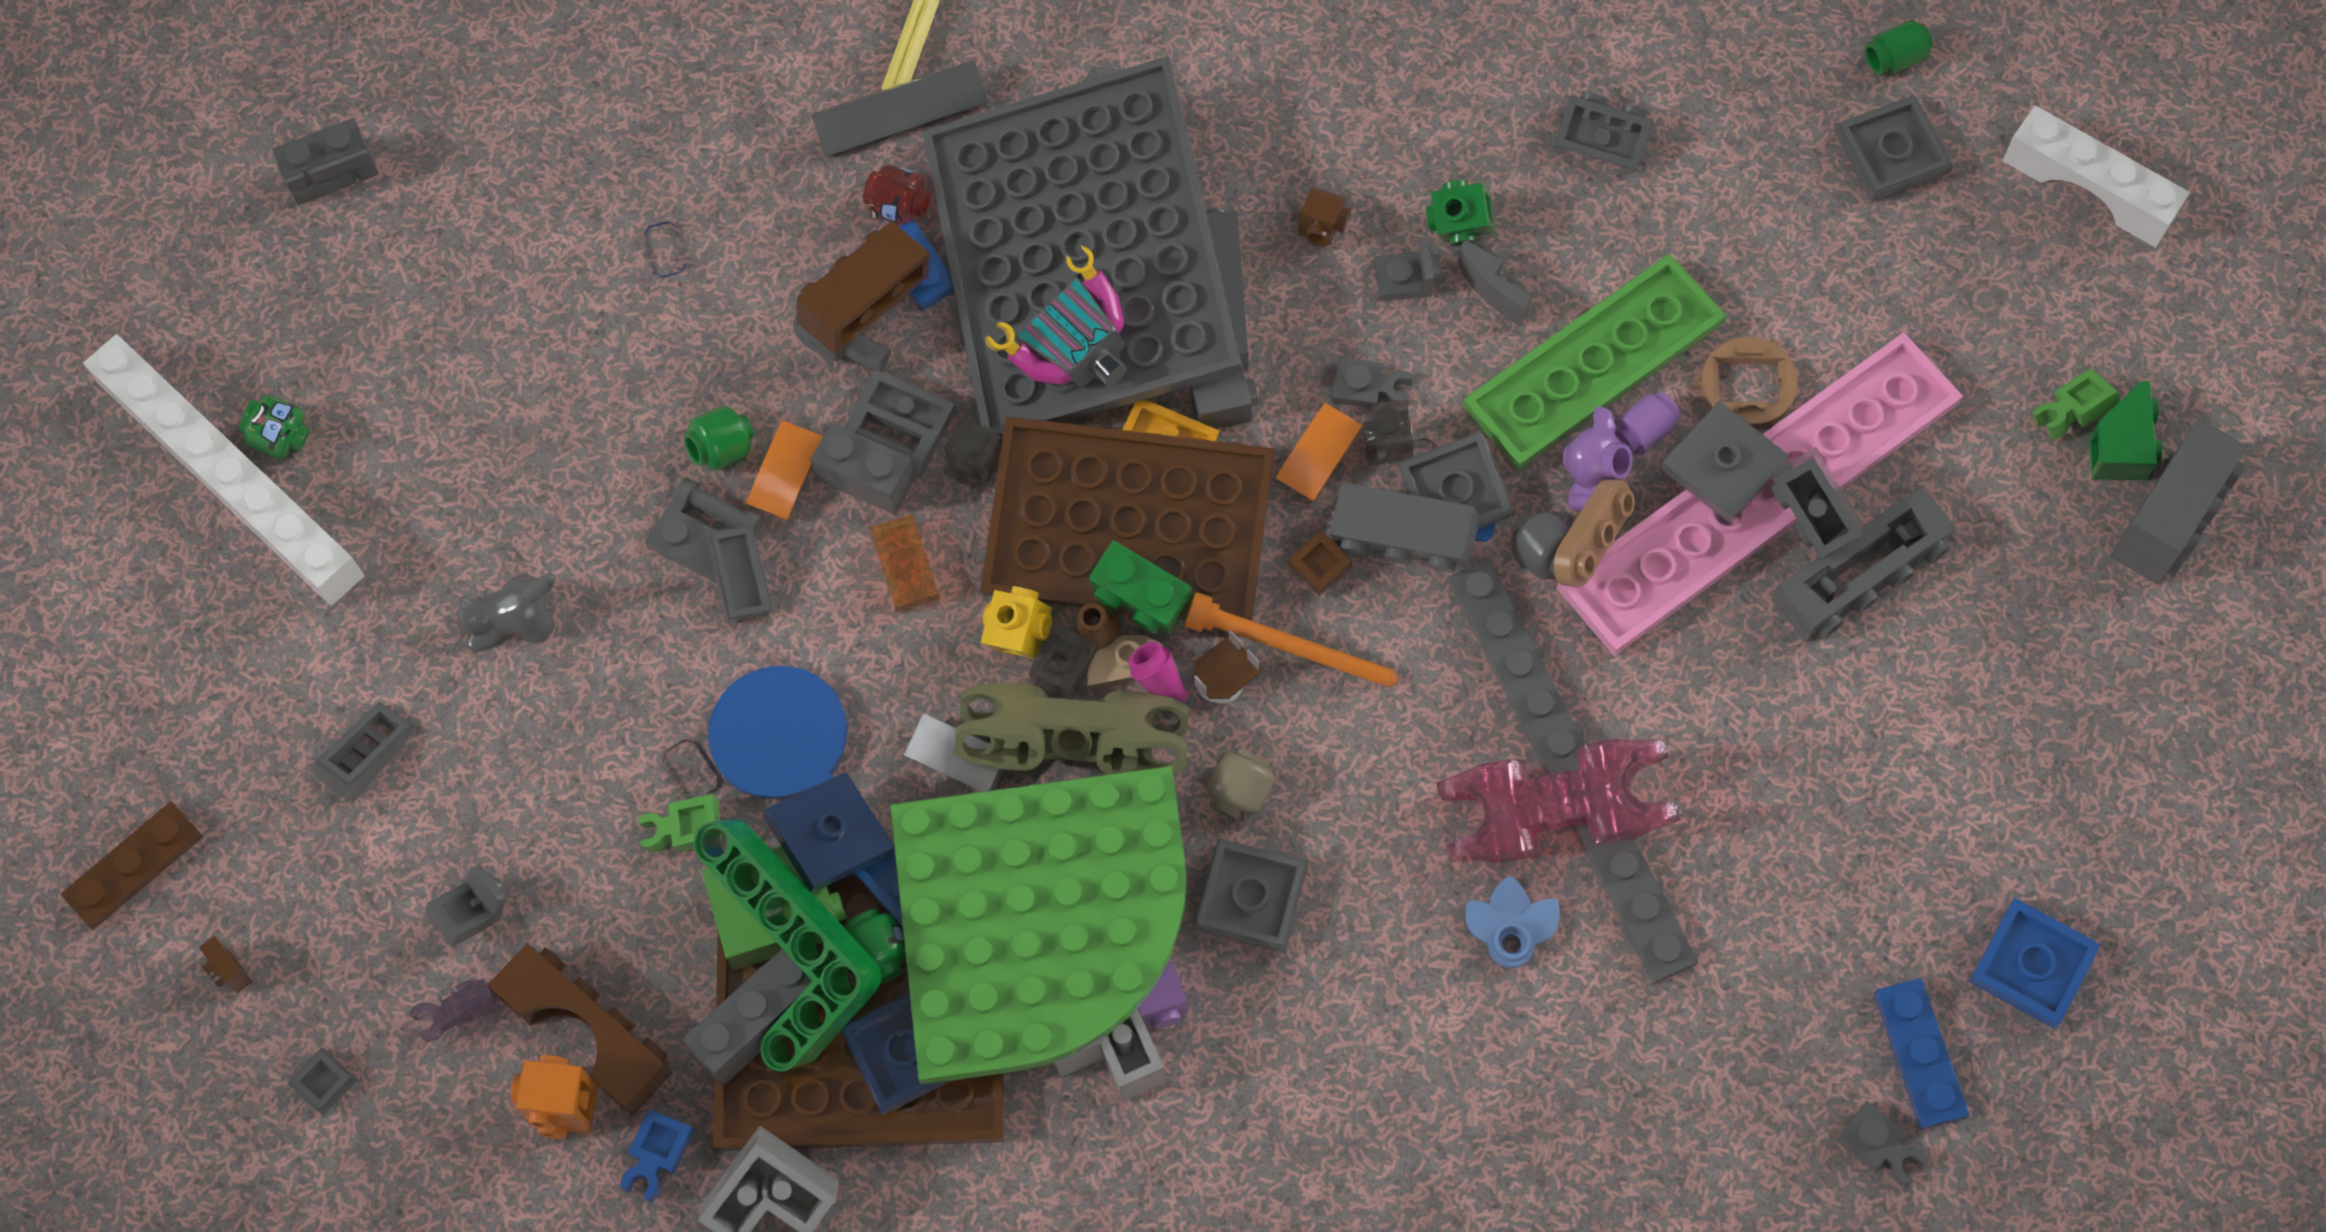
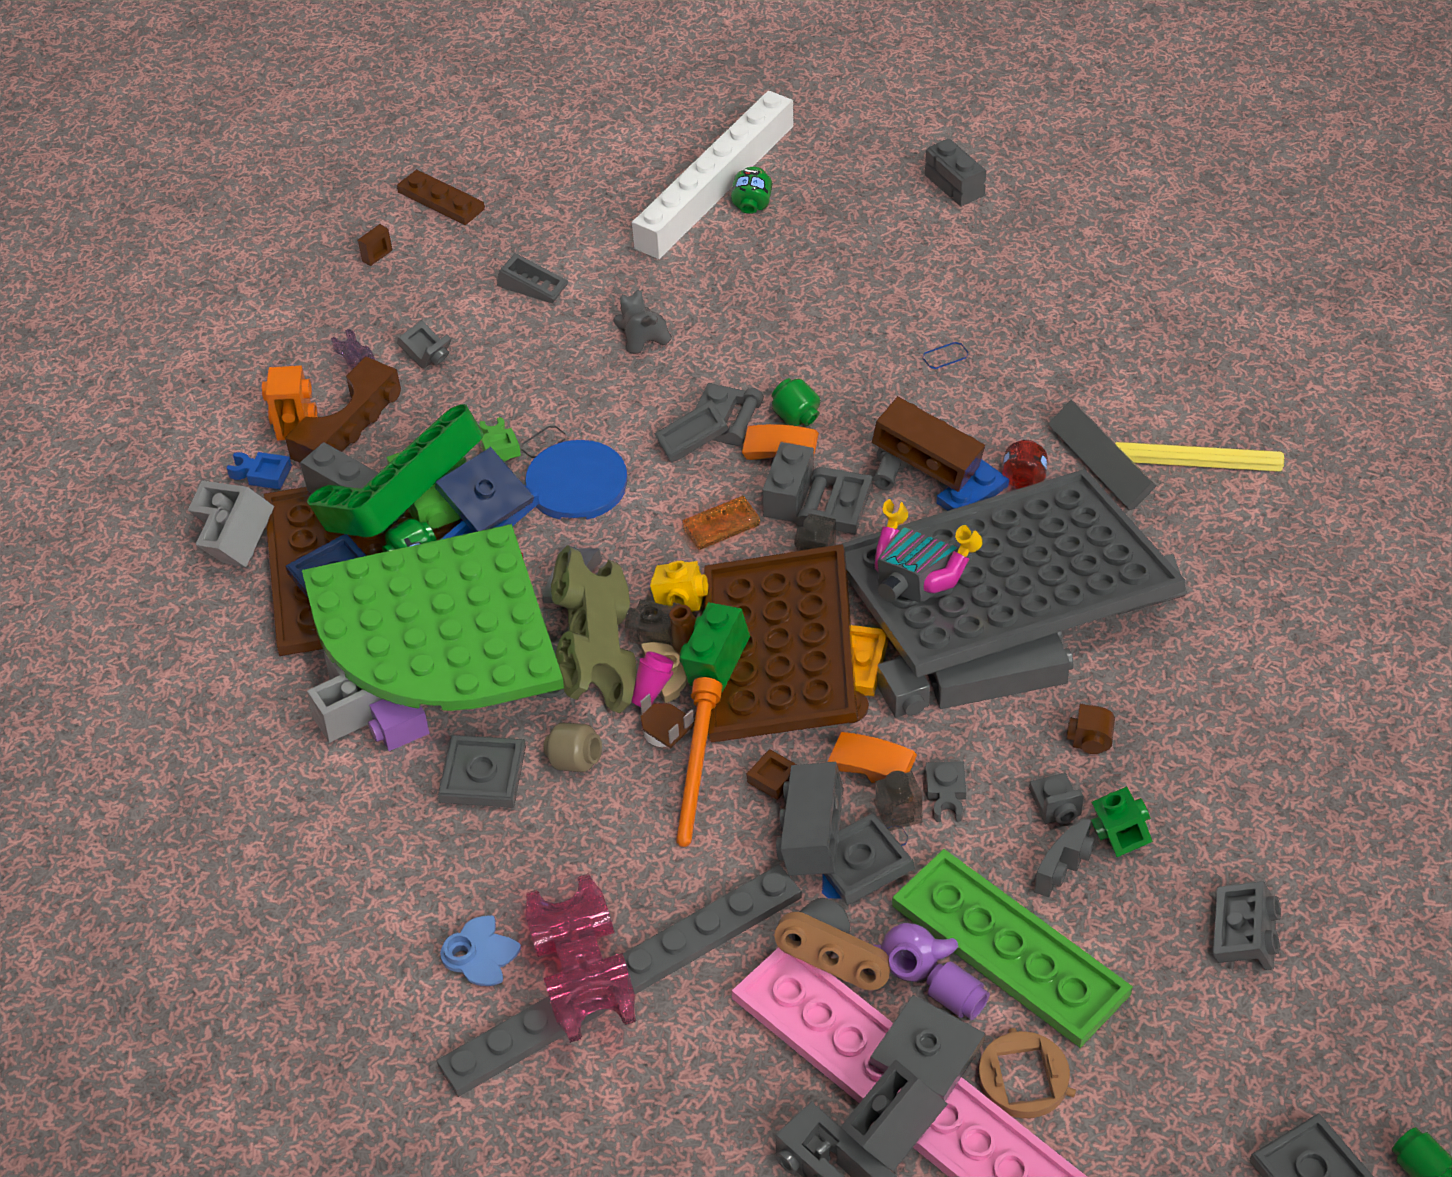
camera: 80 degrees right, 20 degrees down
(322, 1081) = (304, 307): dark grey tile -> none

